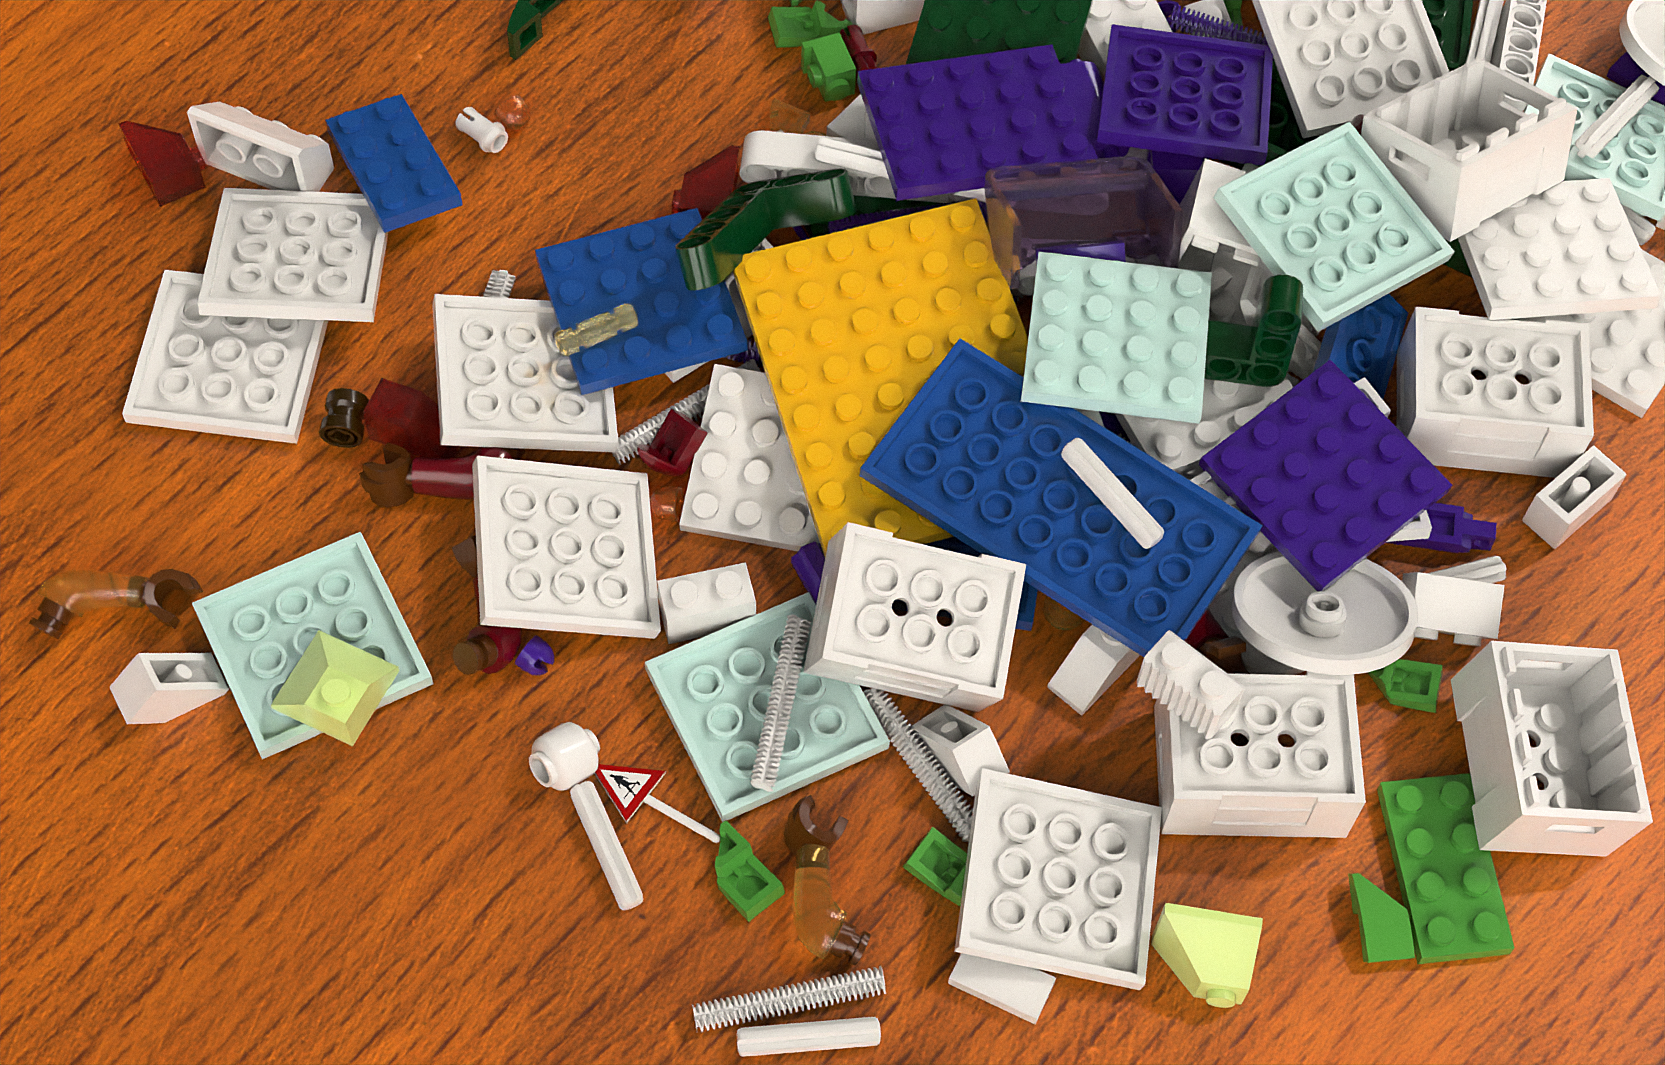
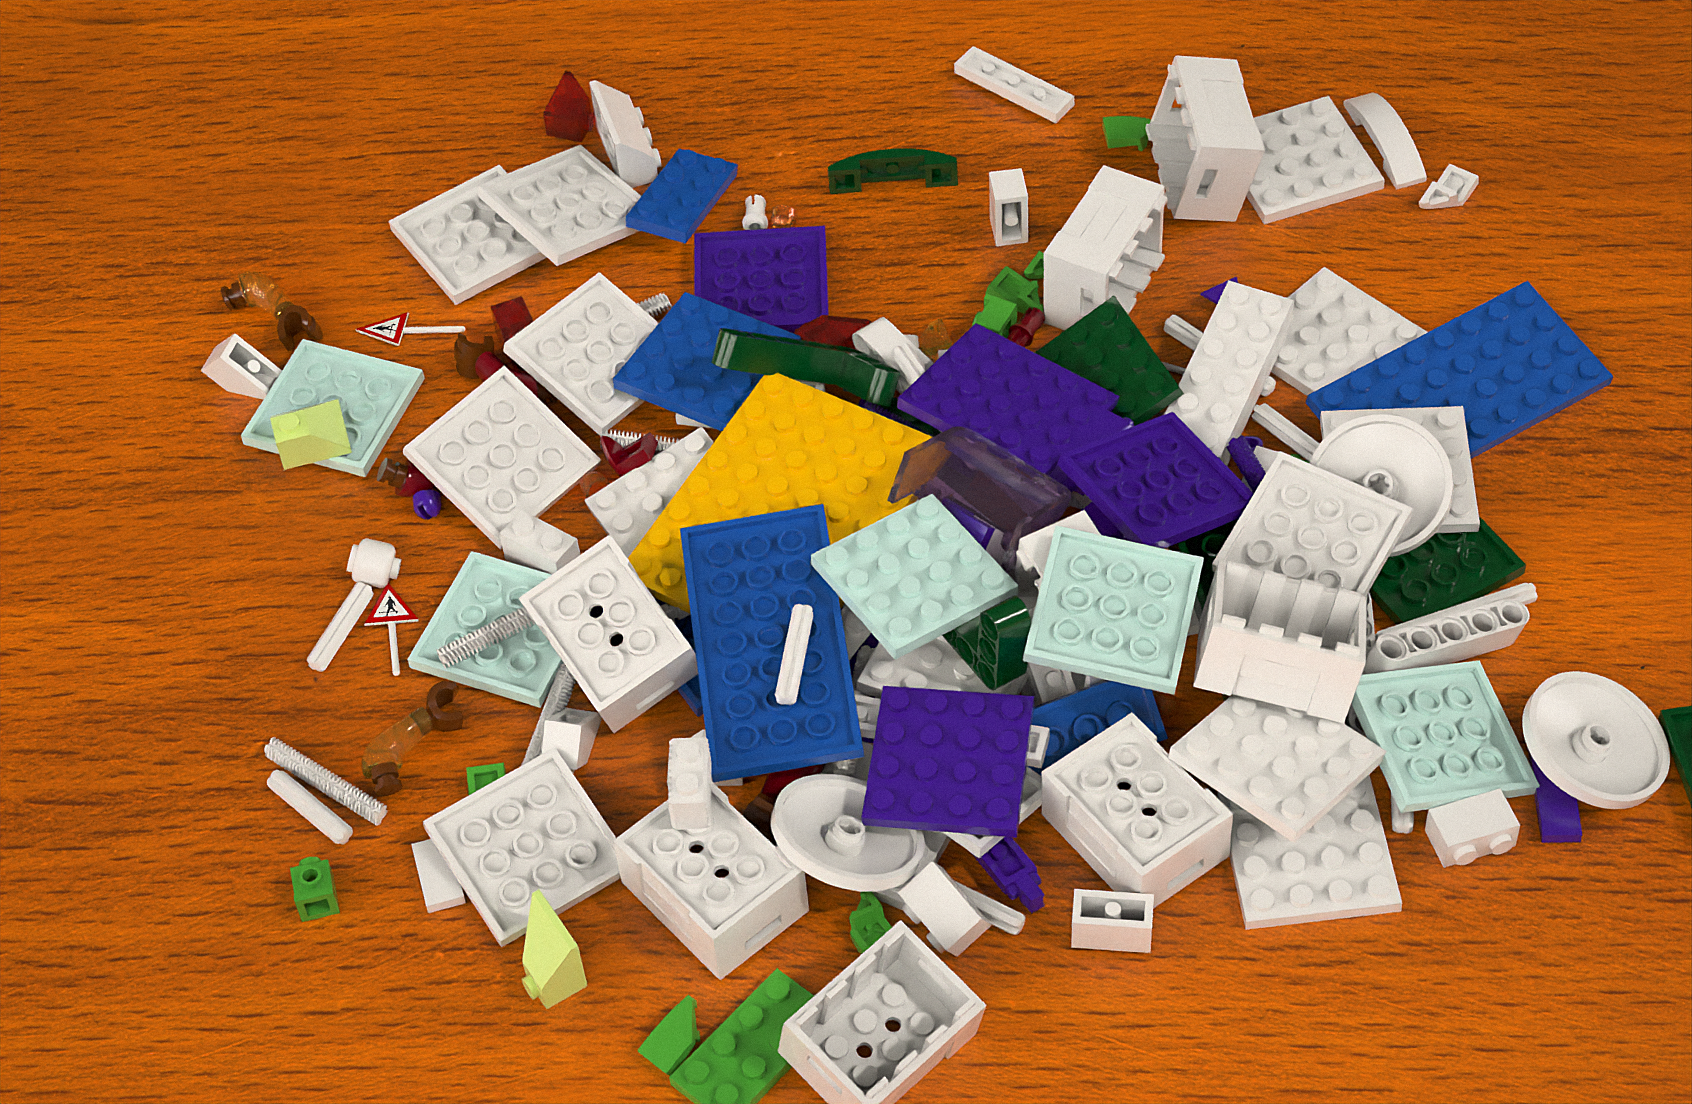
camera: 55 degrees right, 10 degrees down
(261, 521) = (393, 328): none -> white piece
(344, 418) = (480, 307): dark brown wheel -> none
(568, 179) = (765, 273): none -> dark purple plate
(596, 329) = (651, 352): clear yellow axle -> none
(742, 876) = (385, 701): bright green slope -> none
(1616, 116) = (1455, 725): white axle -> none

